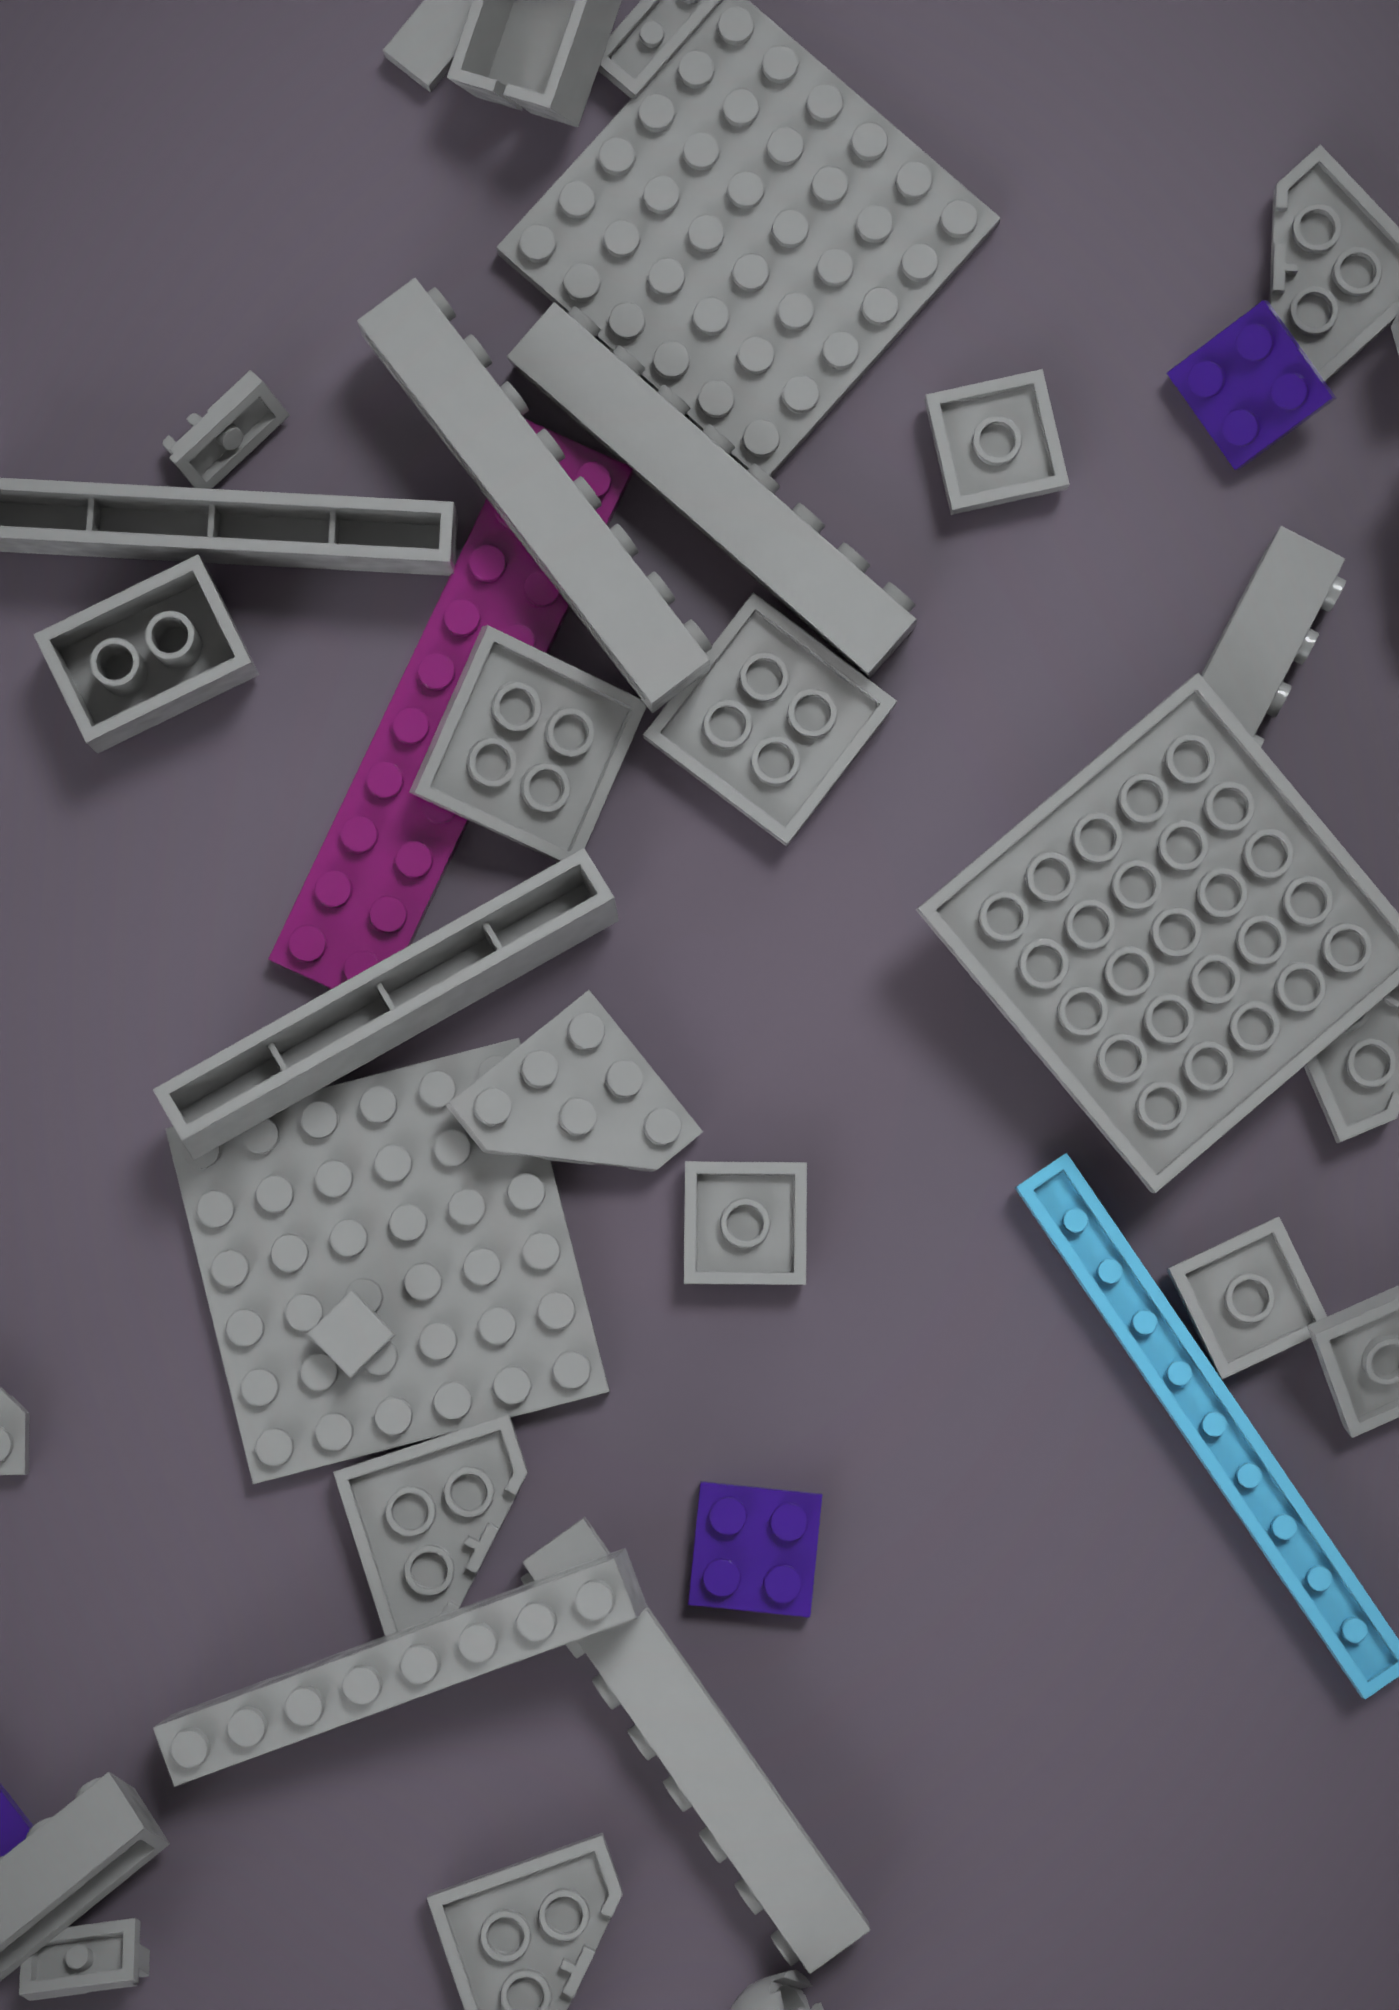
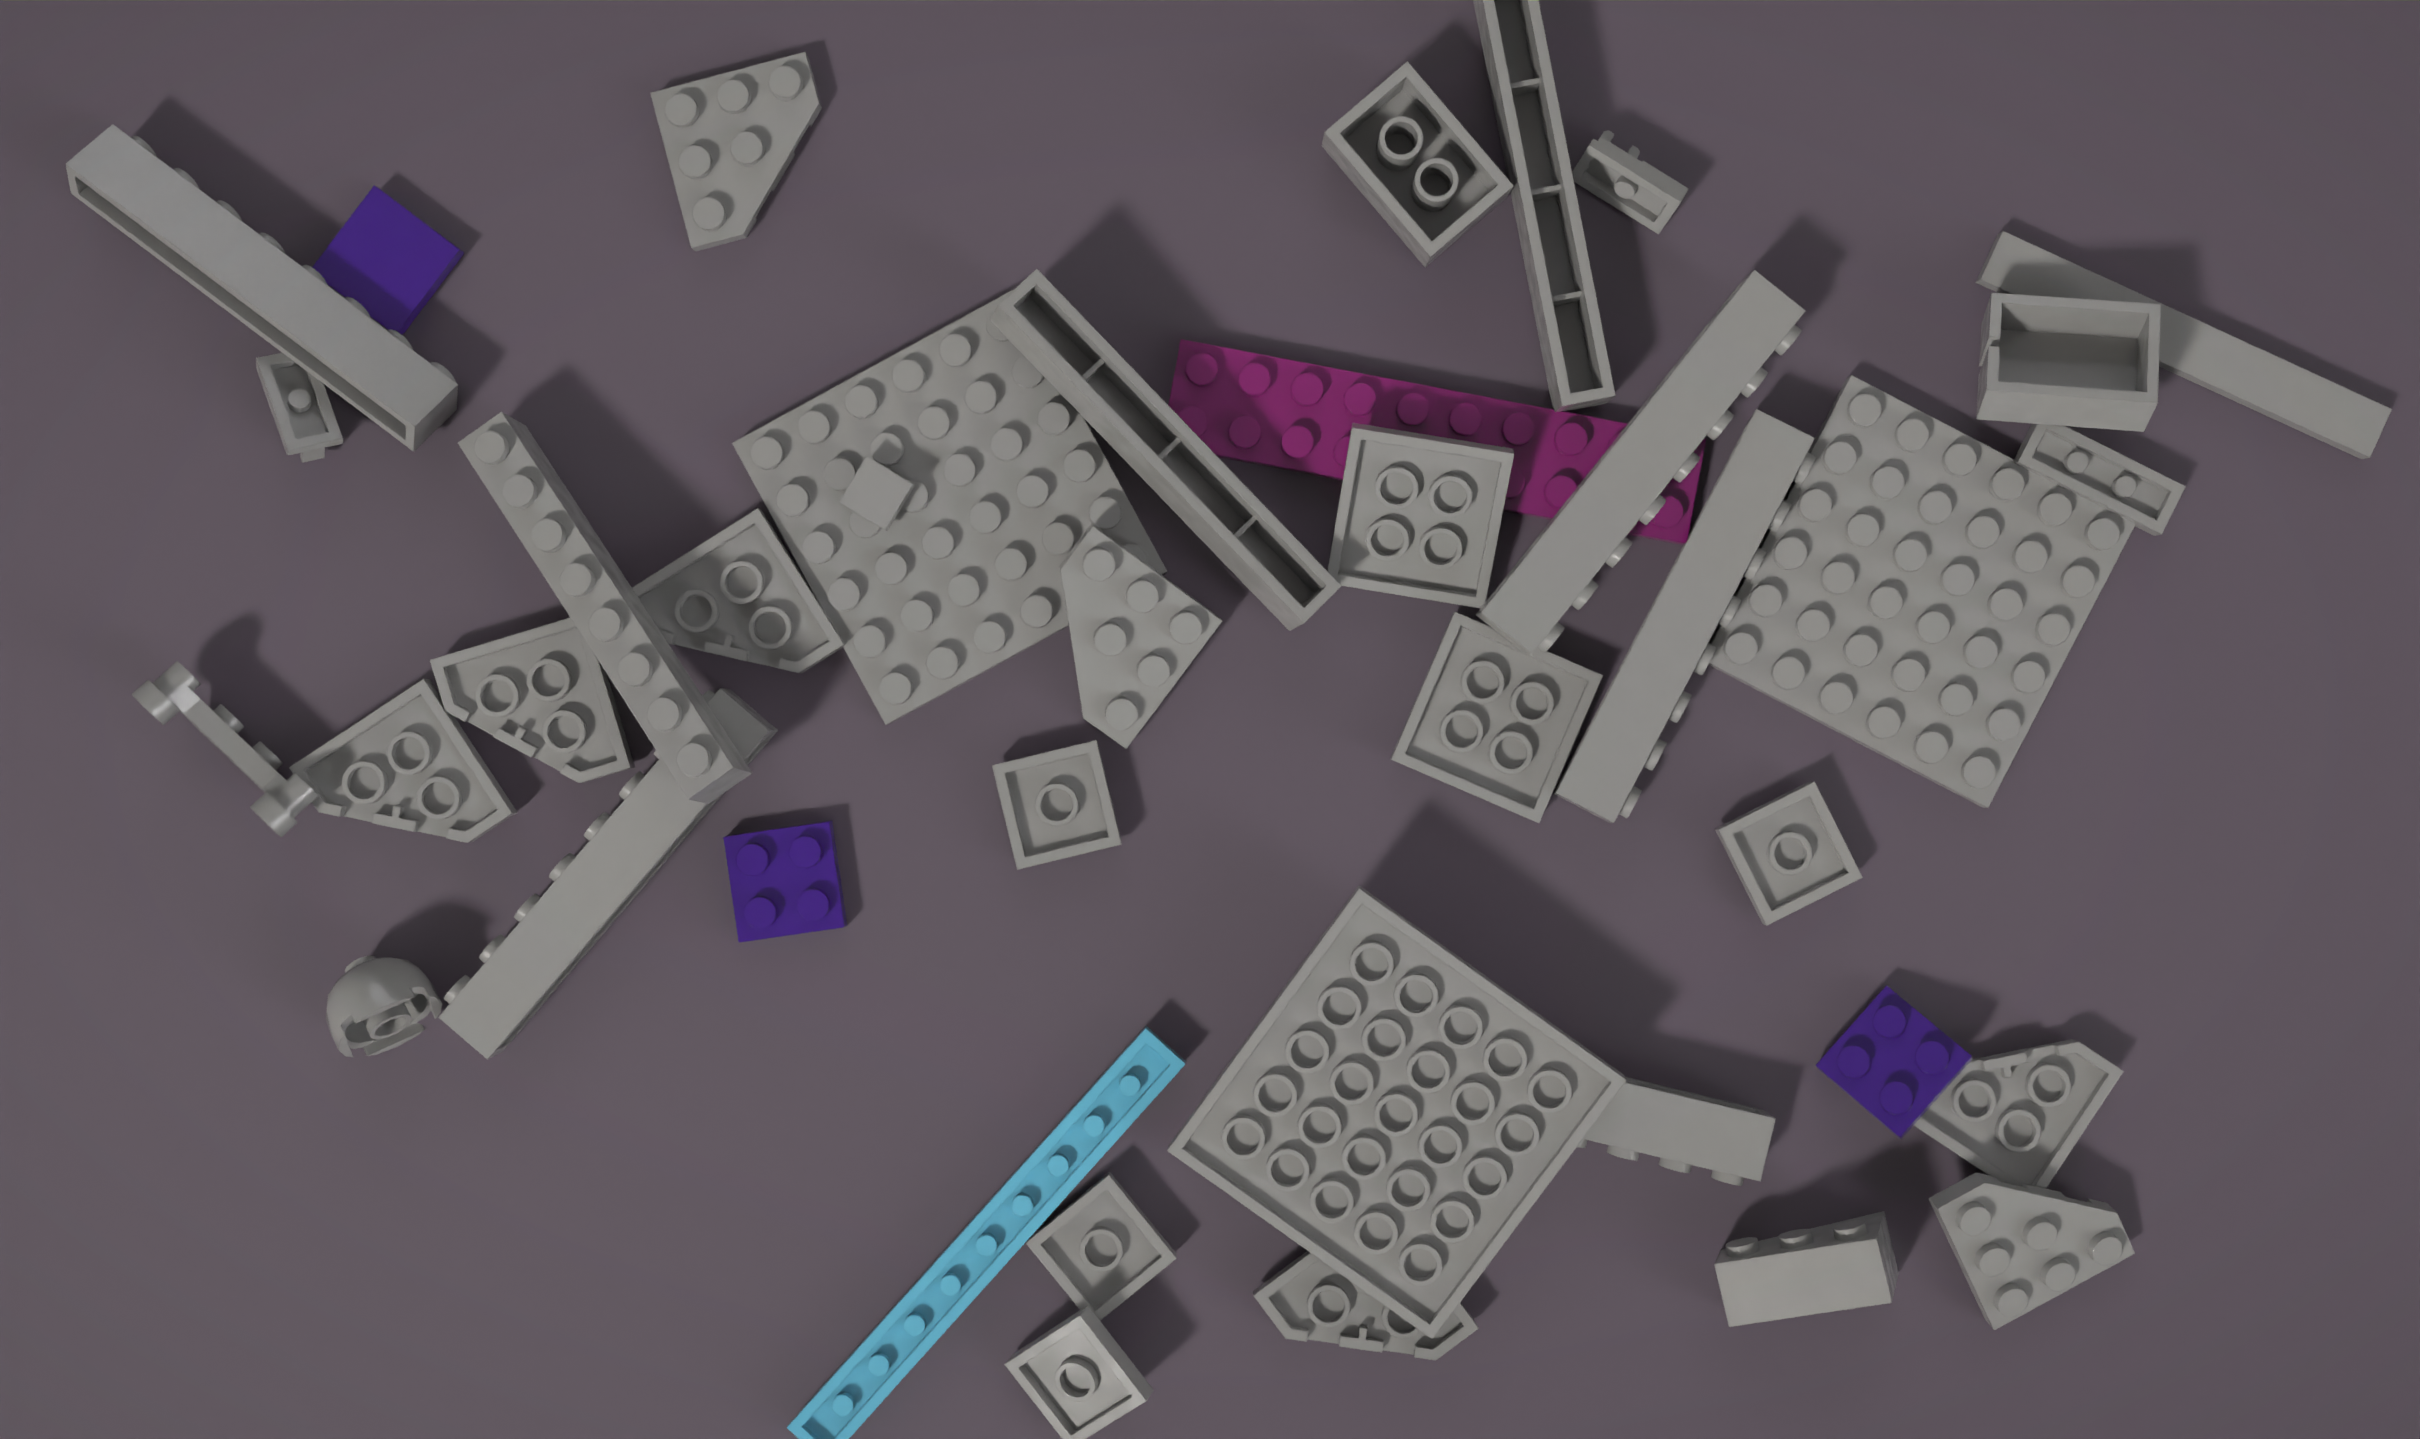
camera: 75 degrees right, 5 degrees up
(480, 1770) = (540, 697): none -> light grey plate

